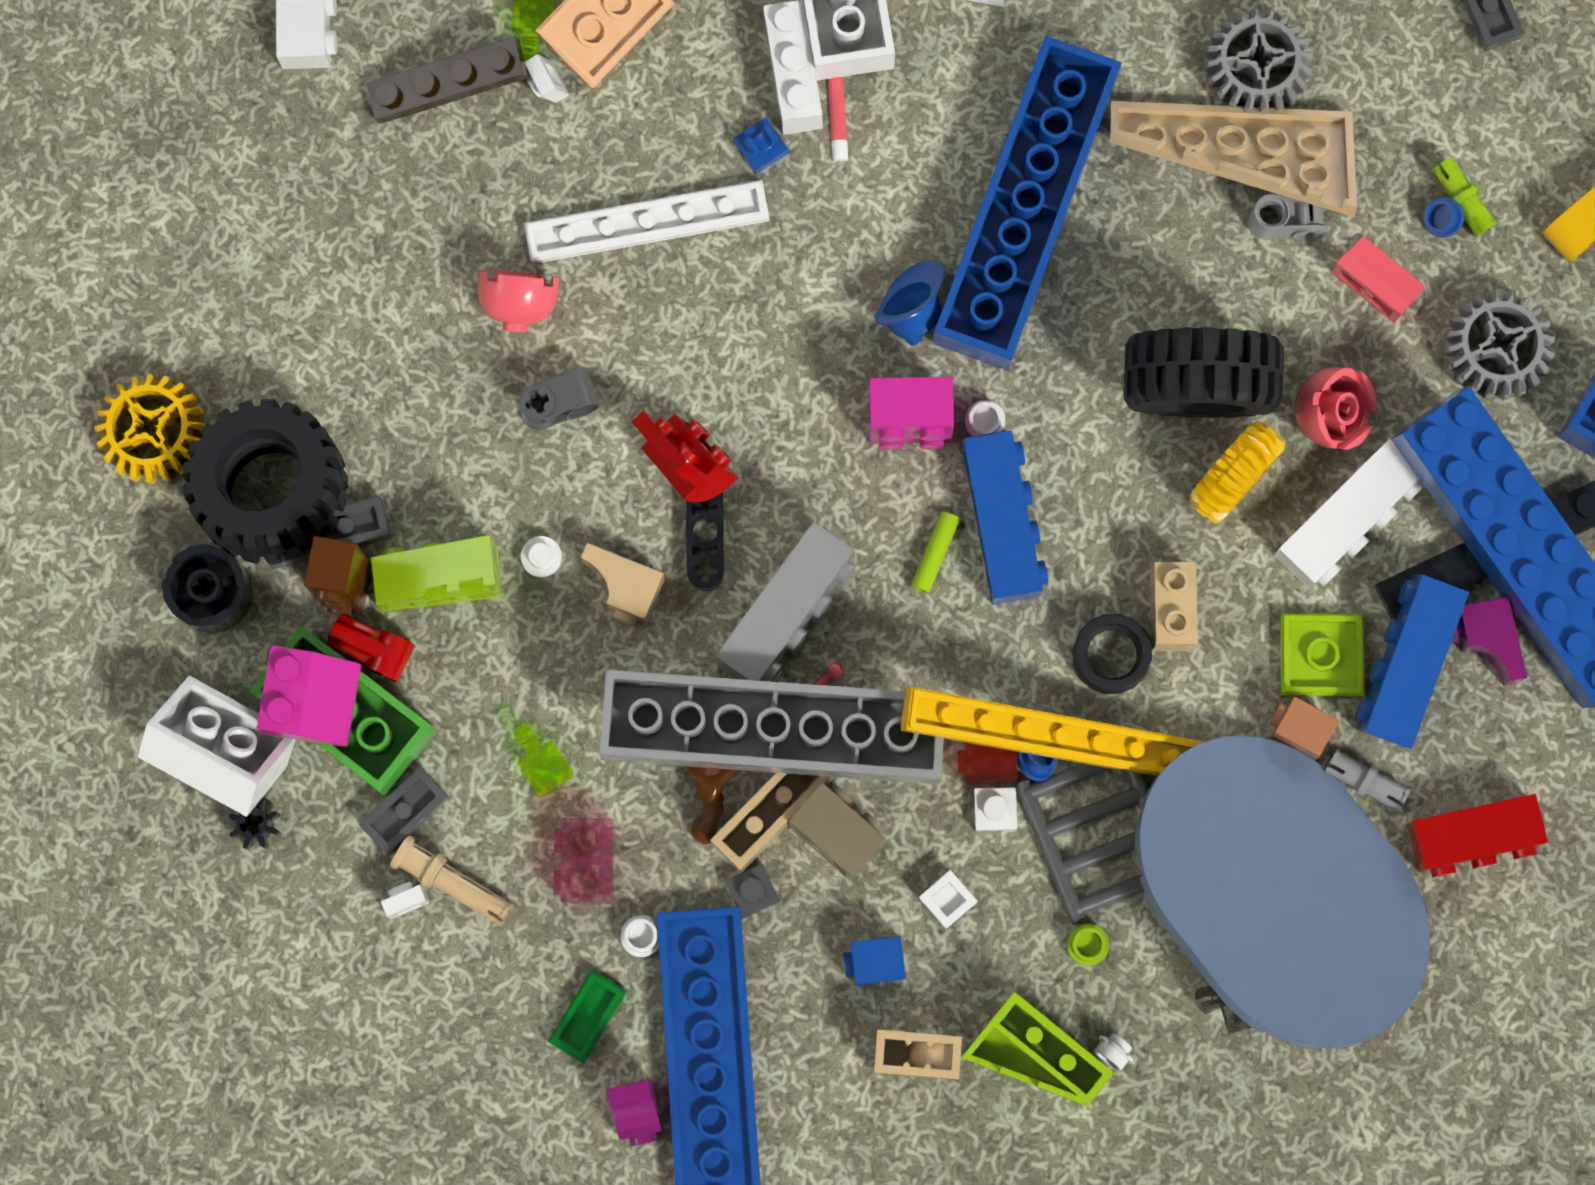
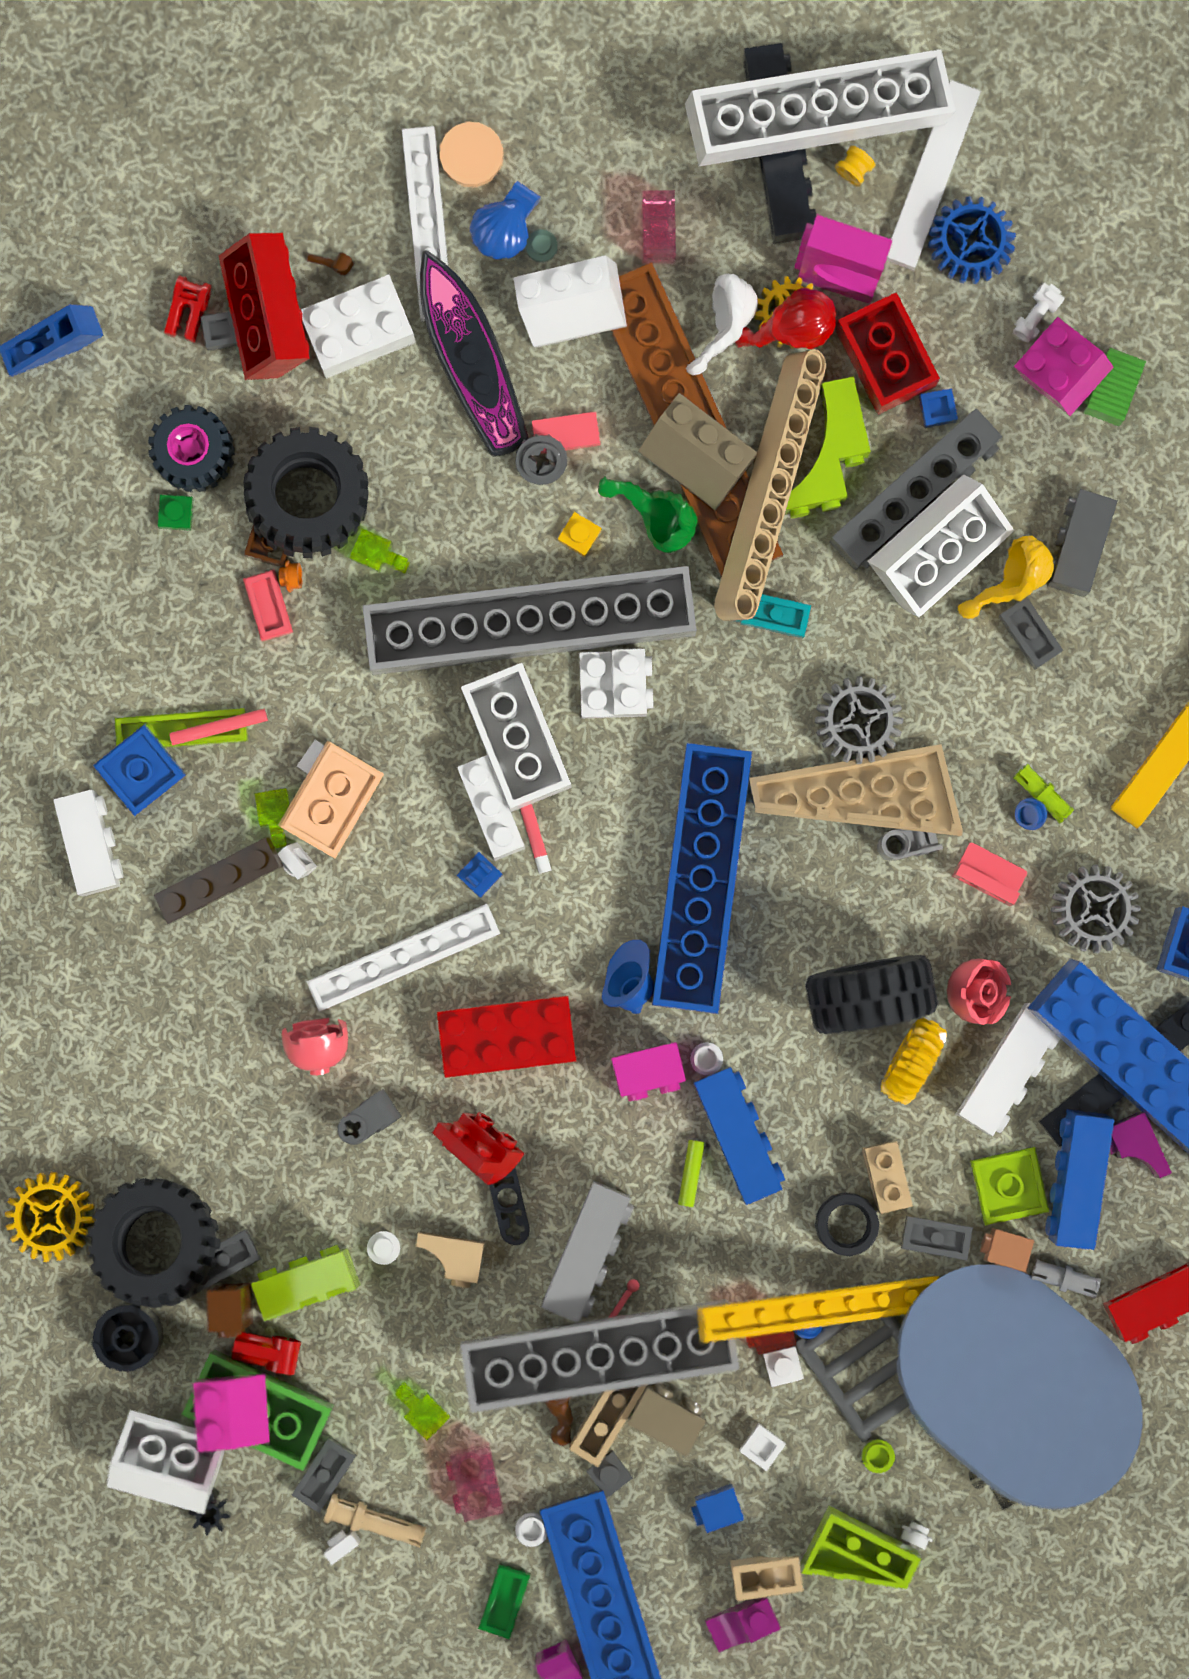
camera: 20 degrees left, 5 degrees up
(748, 337) = (506, 1036): none -> red brick
(874, 1109) = (743, 1623): none -> magenta arch
(1218, 695) = (936, 1238): none -> dark grey plate

